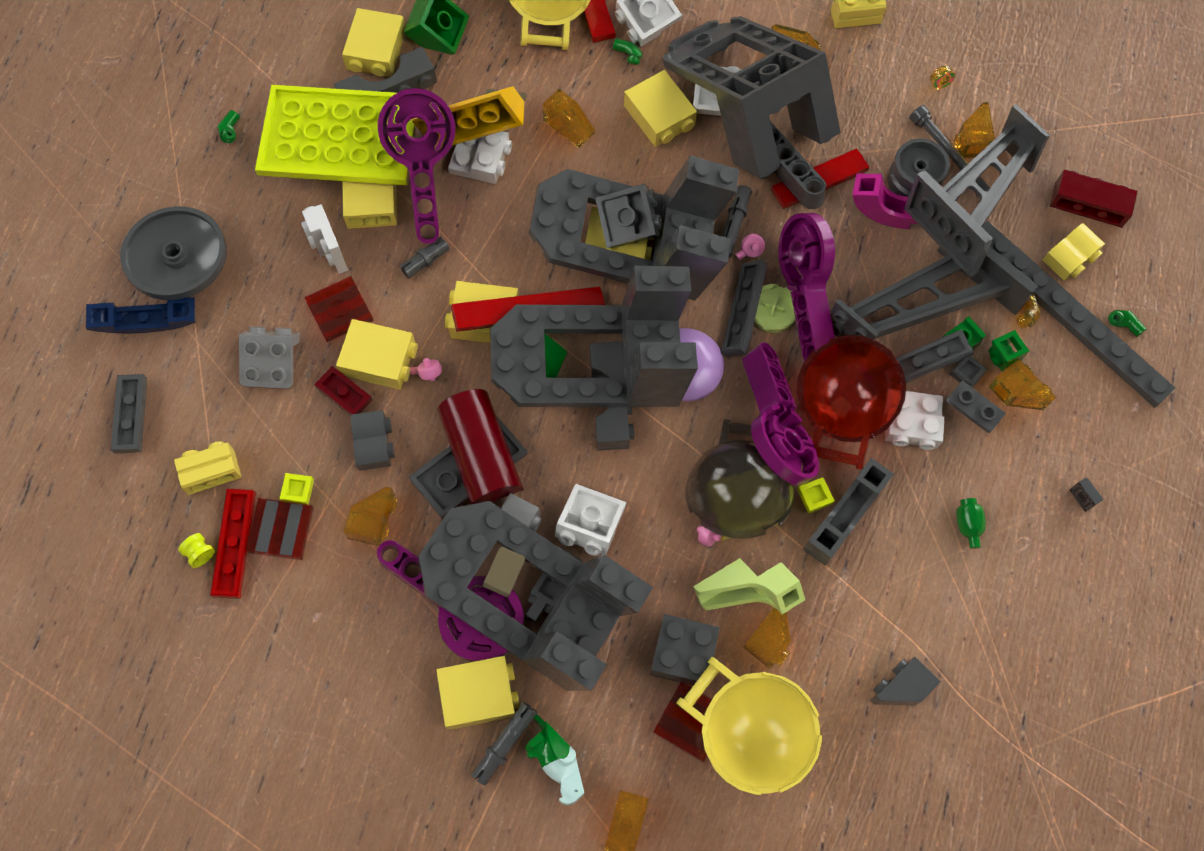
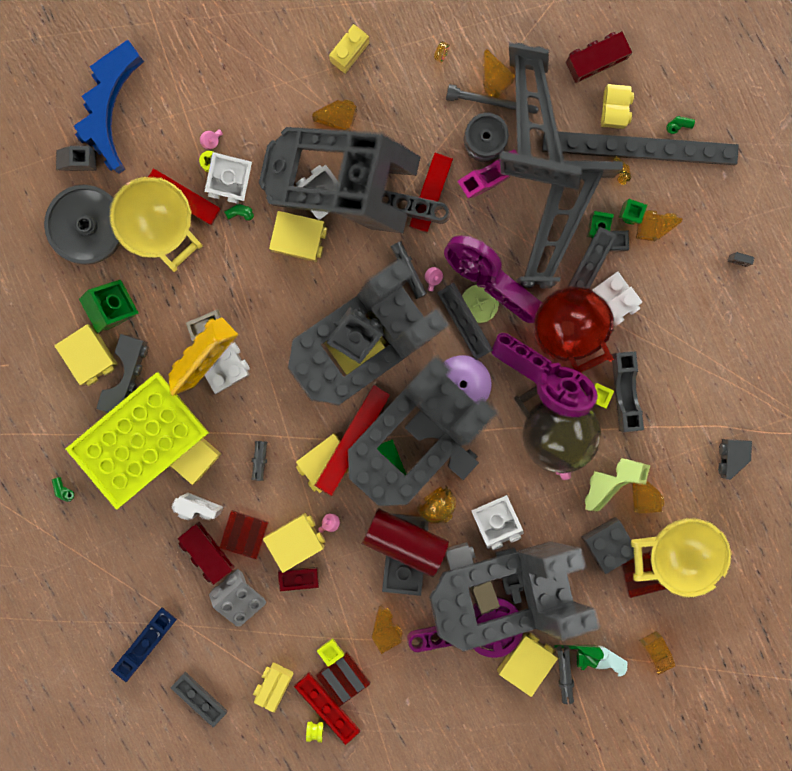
camera: 40 degrees left, 20 degrees up
(173, 253) = (122, 595): dark grey dish -> none
(287, 289) = (205, 553): none -> dark red brick
(371, 440) = (341, 590): dark grey brick -> none
(418, 153) = (202, 413): magenta beam -> none
(547, 445) = (438, 506): none -> clear yellow cylinder
(567, 118) = (251, 295): clear yellow slope -> none
(971, 521) = (693, 332): green plant -> none
(975, 407) = (643, 266): dark grey bracket -> none

